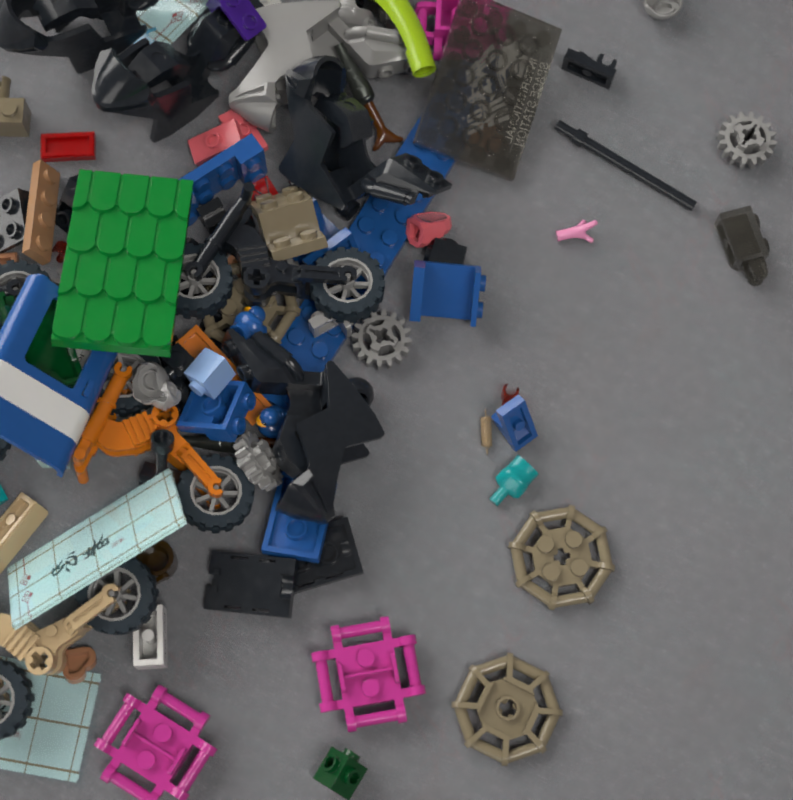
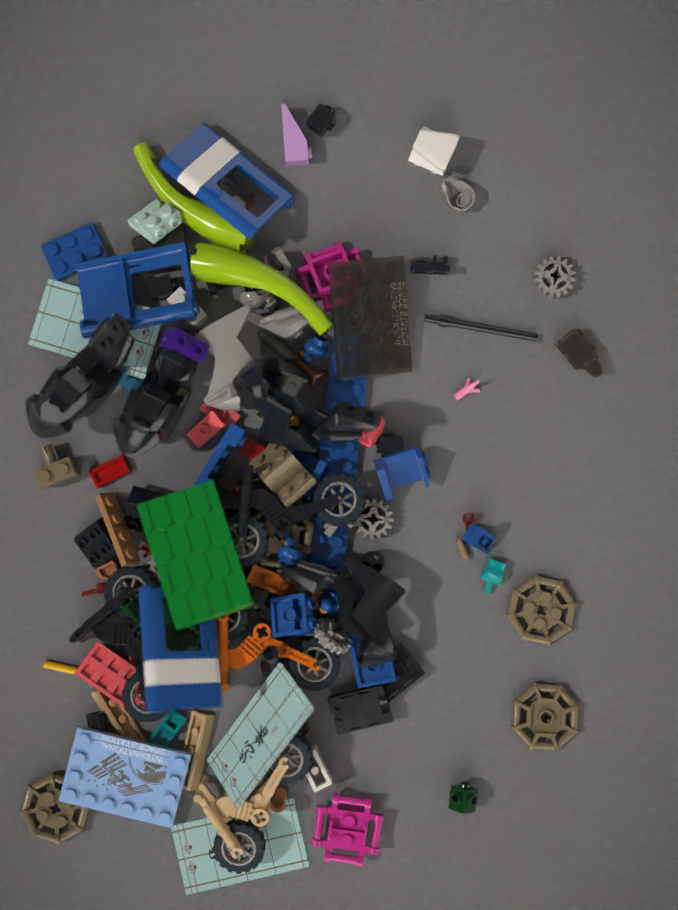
camera: 15 degrees left, 15 degrees up
(153, 386) = (249, 621): light grey hair -> none
(209, 373) = (279, 598): light blue brick -> none
(368, 674) = (454, 733): dark pink brick -> none
(403, 100) = (316, 347): none -> blue animal

